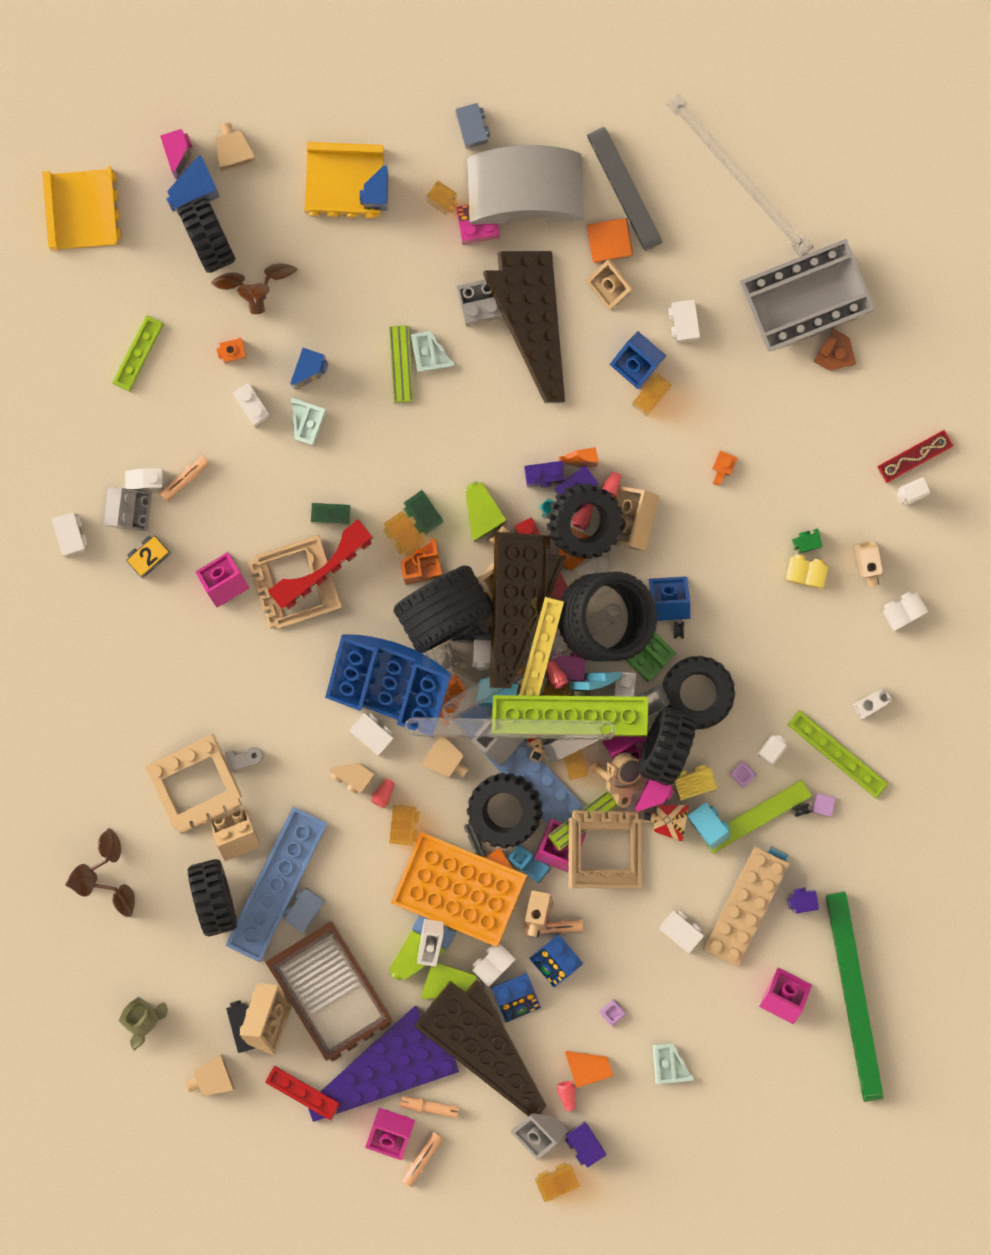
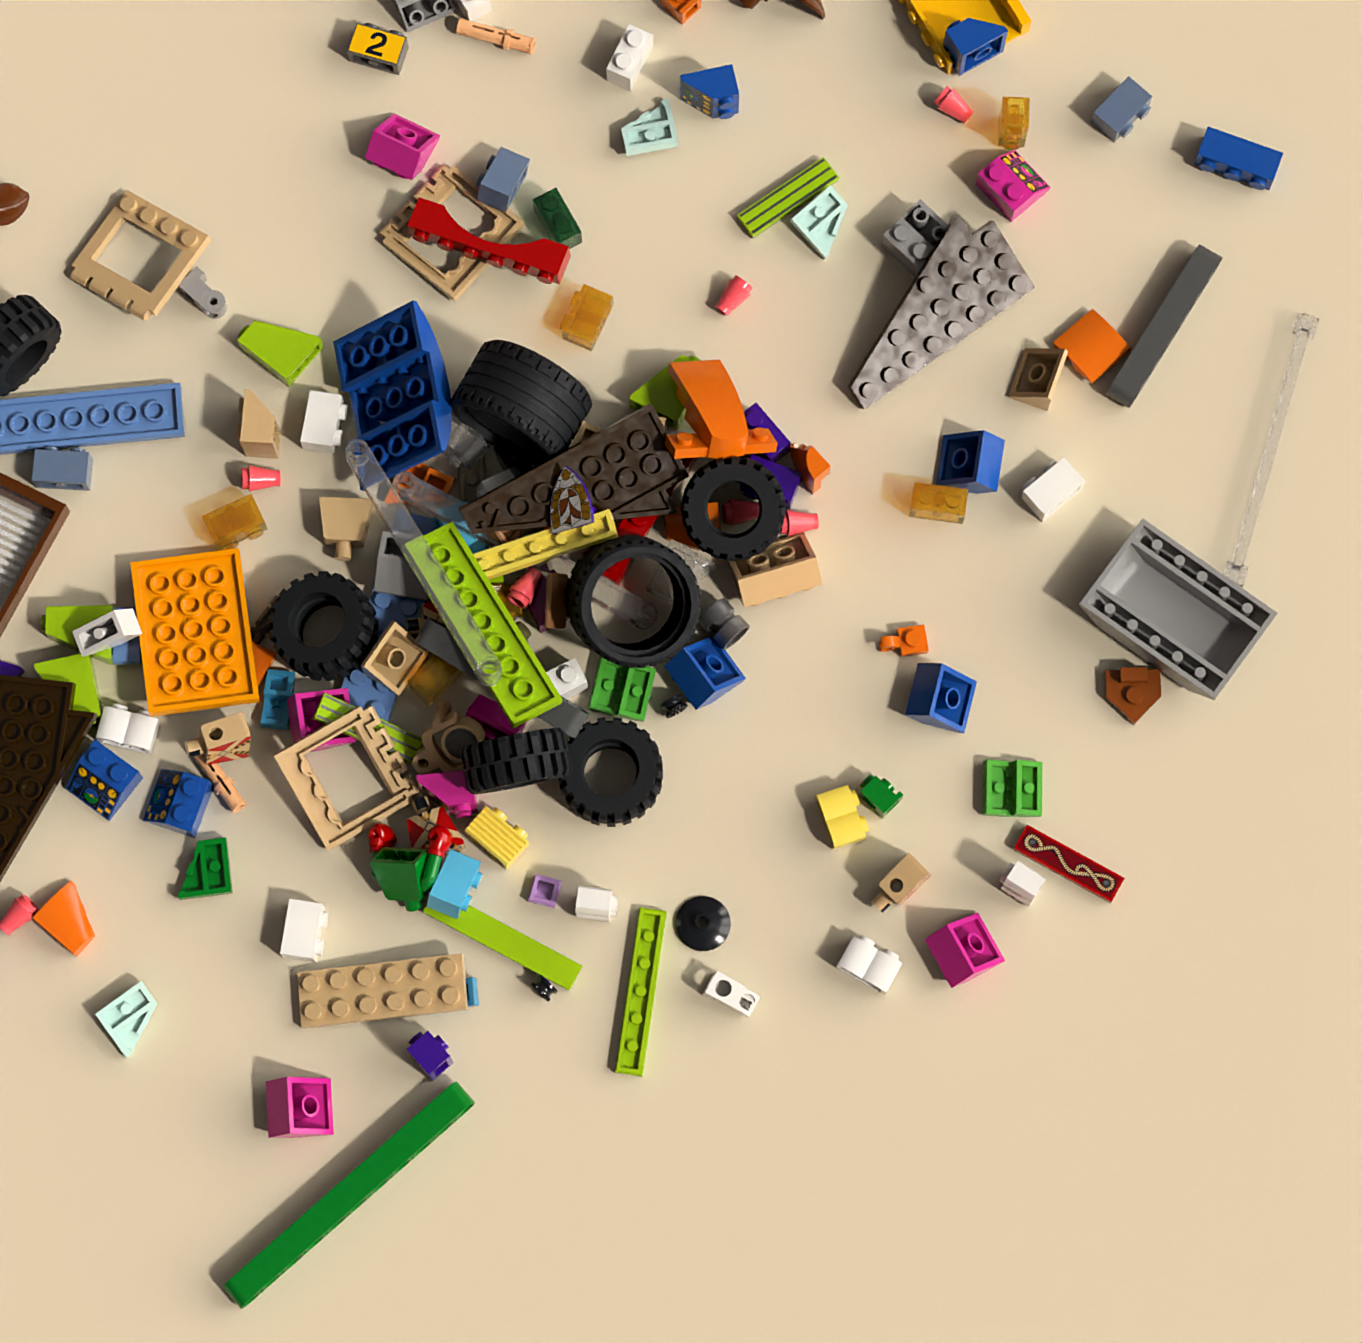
camera: 60 degrees right, 10 degrees down
(234, 834) = (106, 336): tan slope -> none
(284, 531) = (502, 179): none -> sand blue brick
(308, 733) = (279, 349): none -> lime slope
(404, 226) = (953, 105): none -> coral cone
(422, 564) = (568, 356): orange slope -> none
(423, 513) = (626, 324): clear green brick -> none
(444, 436) = (733, 295): none -> coral cone
(521, 497) = (713, 414): none -> orange slope
(525, 184) = (1093, 207): light grey slope -> none
(529, 618) = (570, 503): none -> shield
(547, 76) = (1238, 159): none -> blue brick
(551, 779) = (394, 658): none -> tan slope
(575, 662) = (555, 601): none -> medium nougat slope
(595, 680) = (548, 638): medium azure slope -> none
(610, 966) = (209, 871): none -> green wing
(612, 1012) = (153, 909): lavender tile -> none
(648, 568) = (724, 624): none -> flat silver wheel
(685, 850) = (406, 872): none -> green torso
(770, 468) = (940, 697): none -> blue slope
(809, 697) = (705, 937): none -> black dish
(823, 804) = (567, 1012): lavender tile -> none
(850, 460) = (1012, 788): none -> bright green slope
(930, 550) = (964, 949): none -> dark pink slope

